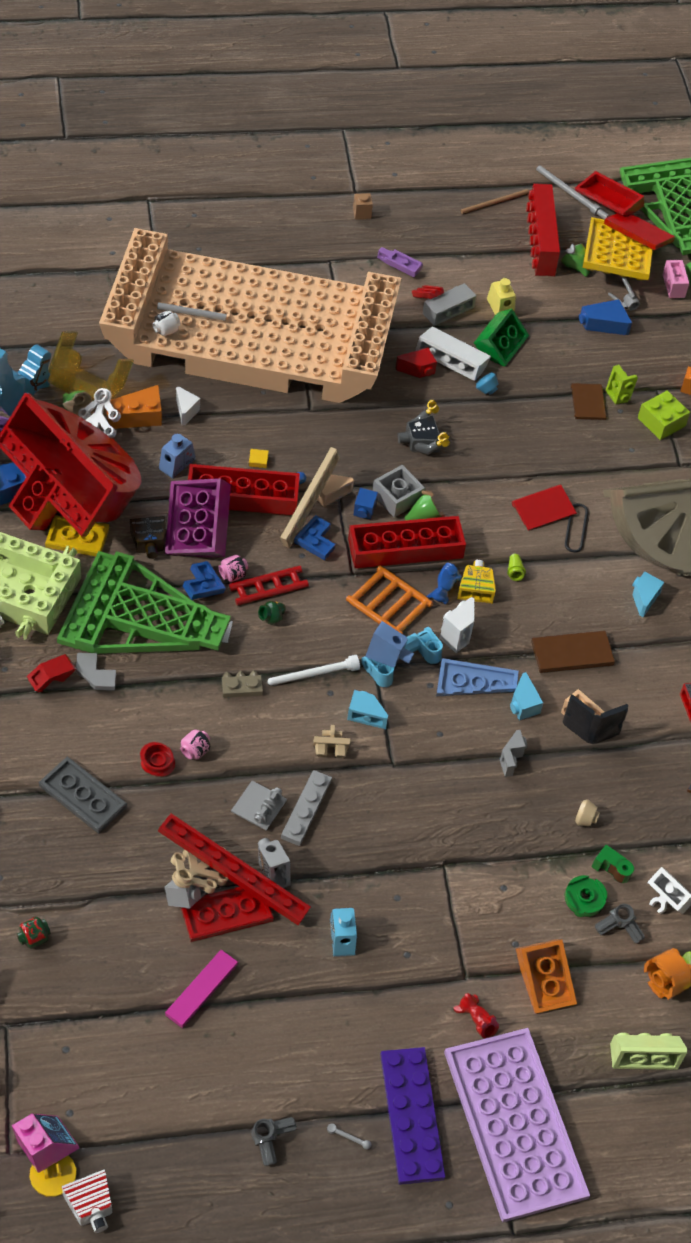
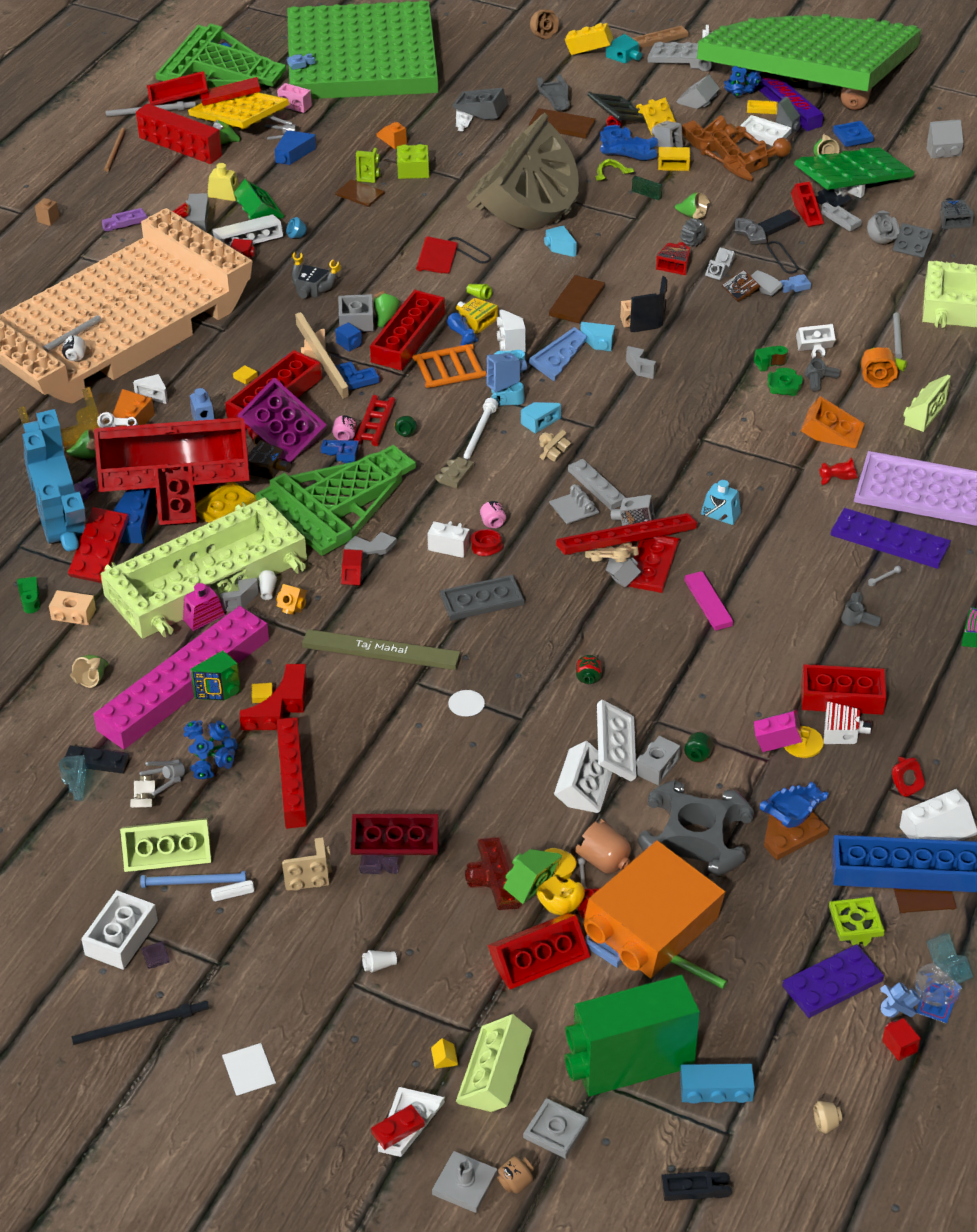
camera: 50 degrees left, 10 degrees down
(136, 1176) = (844, 686): none -> red brick
(138, 727) = (448, 539): none -> white brick
(587, 814) = (720, 350): tan cone -> none

